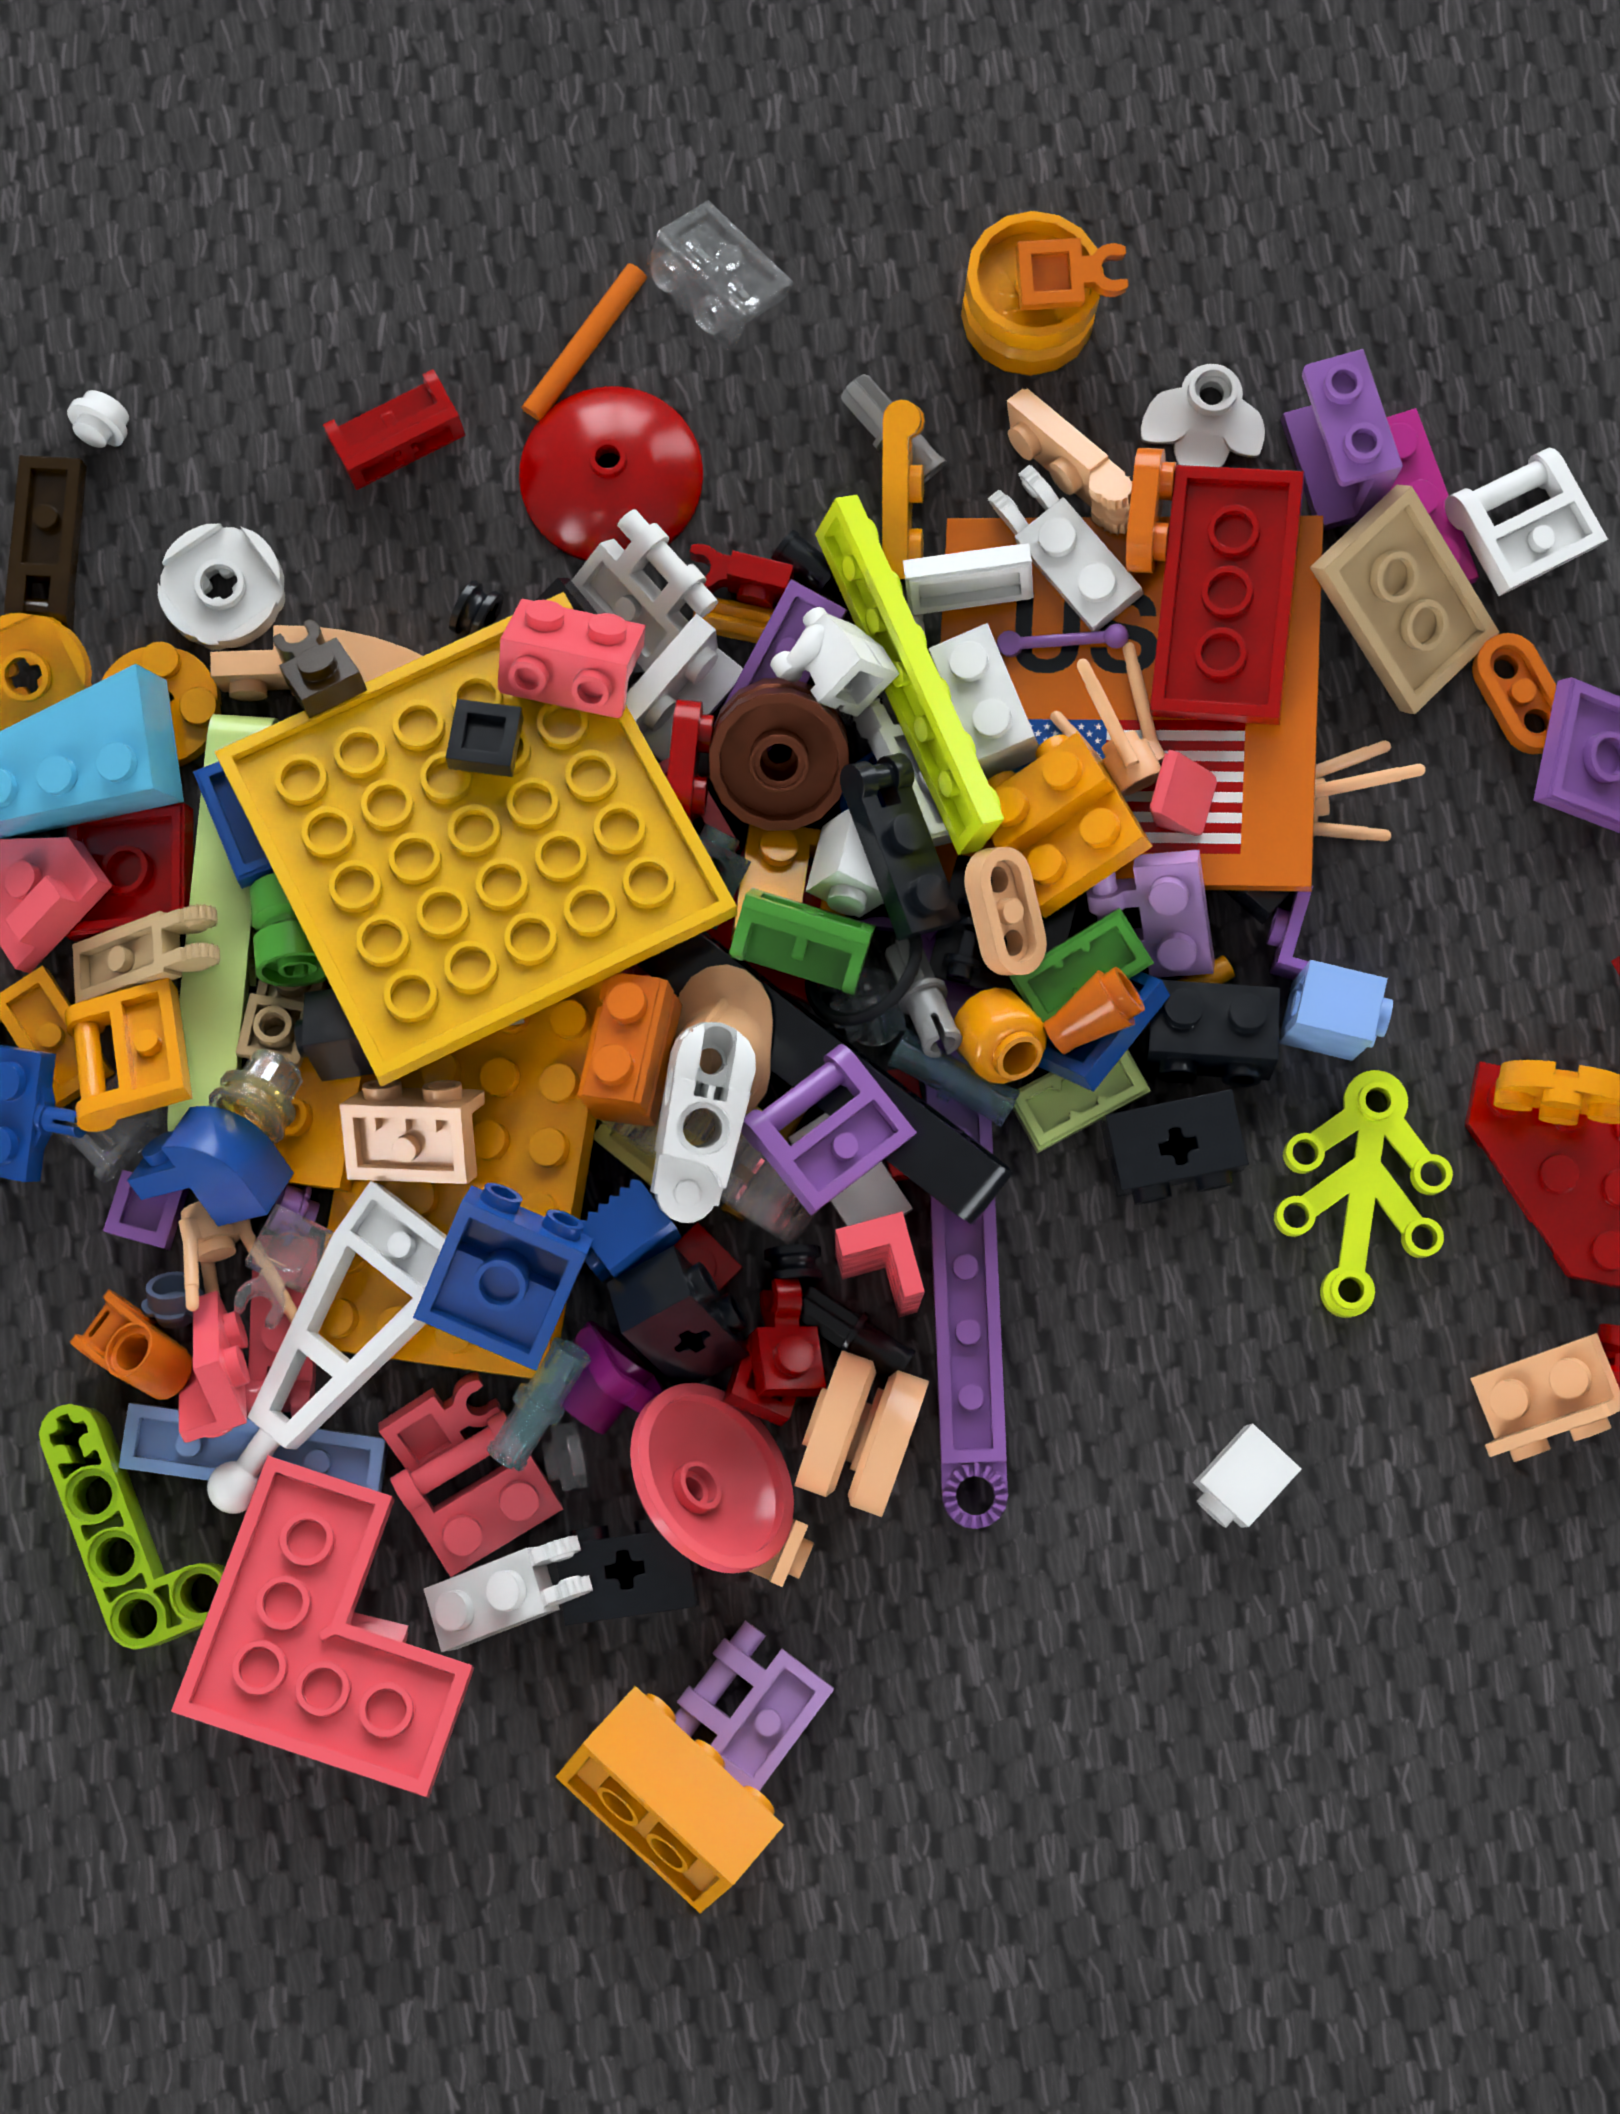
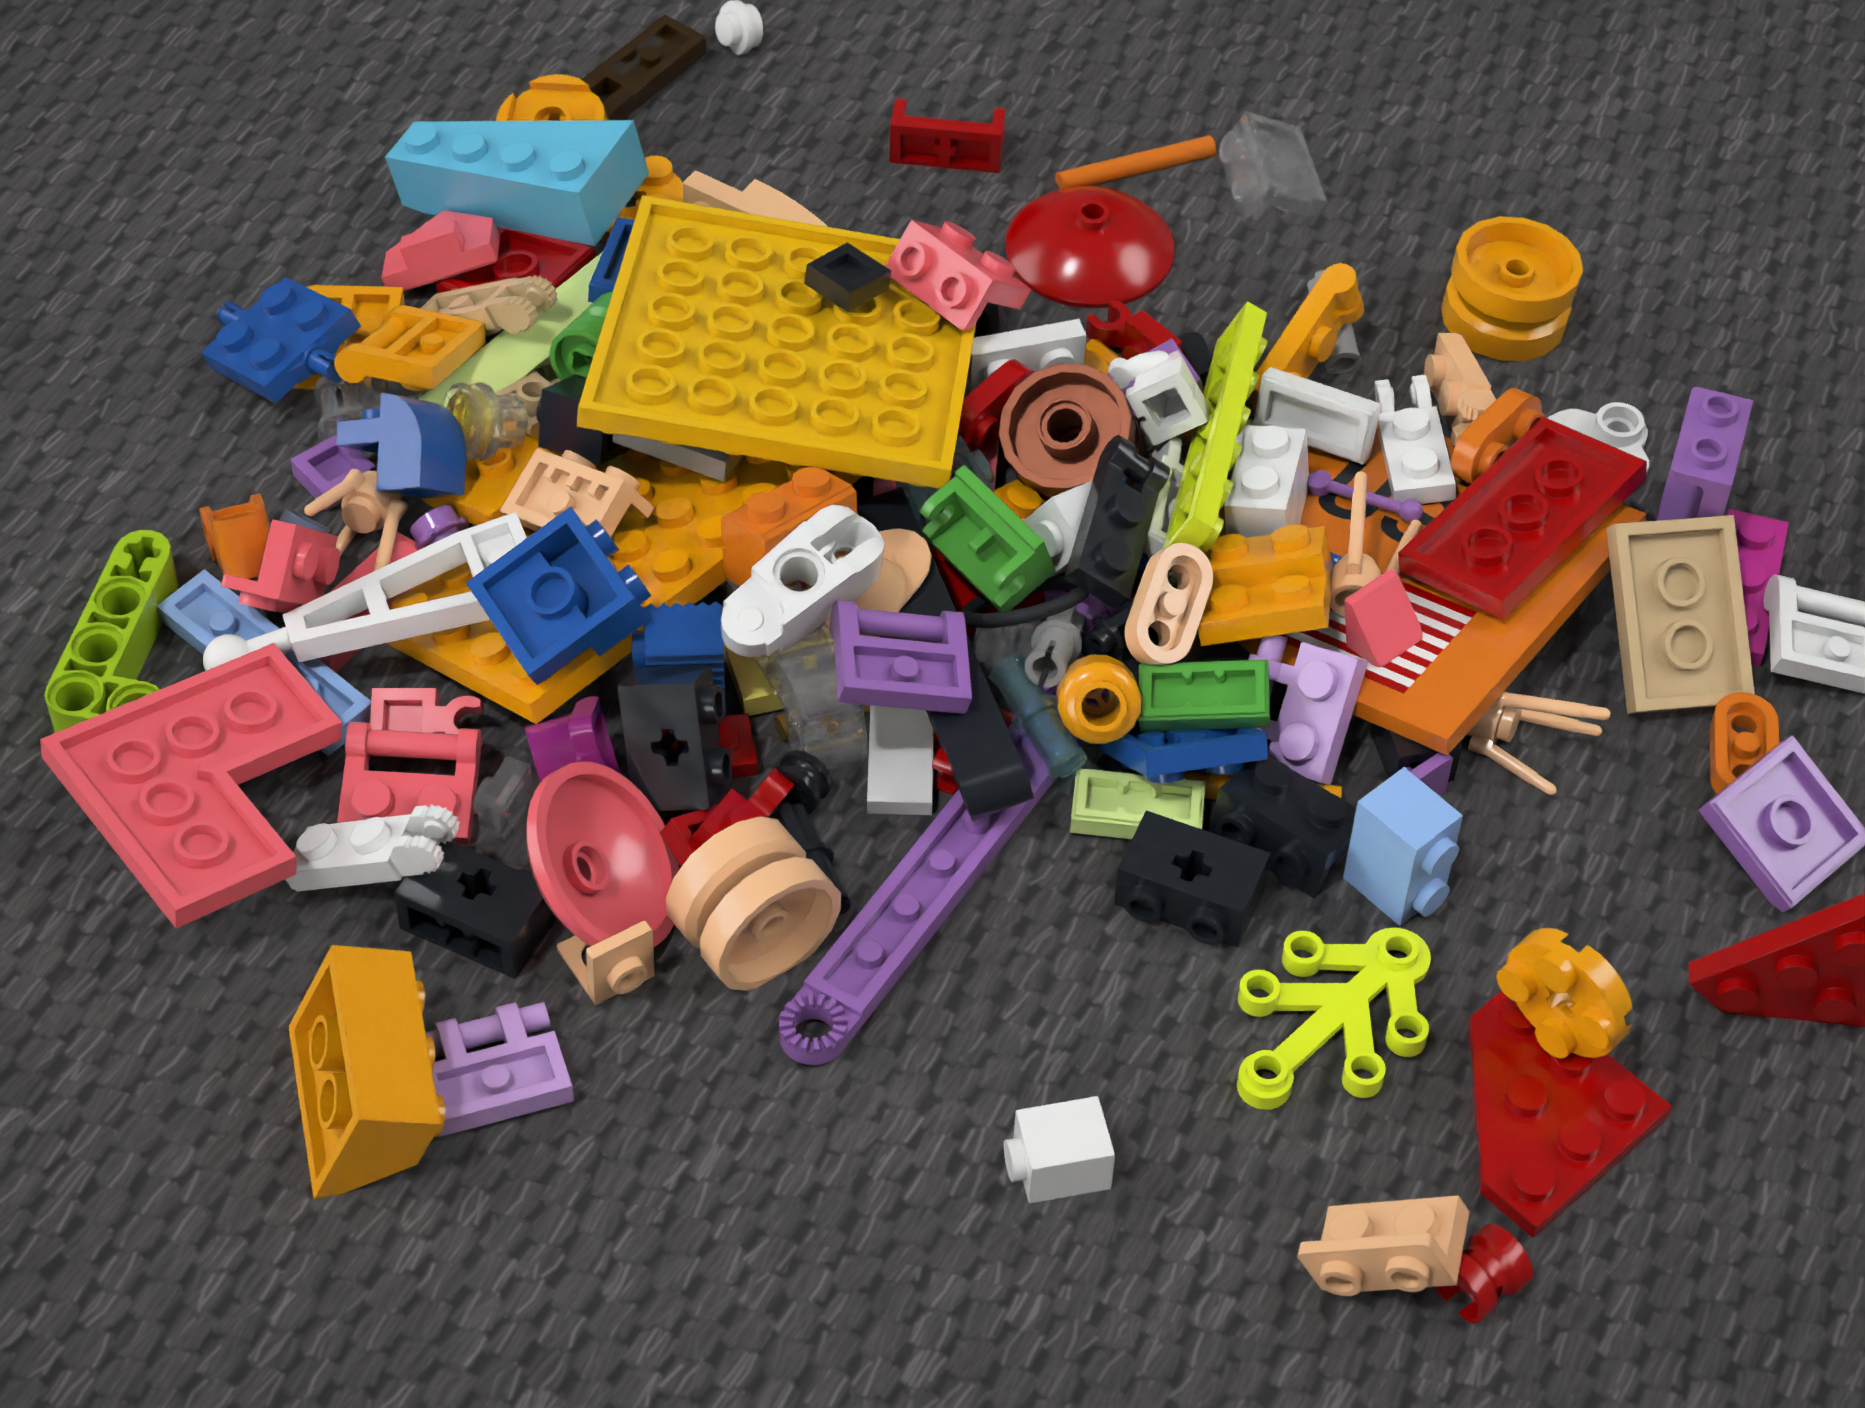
camera: 30 degrees right, 30 degrees down
(220, 621) = (767, 150): white plate -> none
(285, 1257) = (396, 530): clear plate -> none
(318, 671) = (761, 197): dark brown plate -> none
(538, 1404) = (510, 716): clear light blue pin -> none
(617, 584) = (1051, 282): white plate -> none
(882, 1245) = (869, 754): coral fence -> none
(1055, 273) = (1540, 255): orange plate -> none
(1096, 1010) = (1191, 712): orange cone -> none

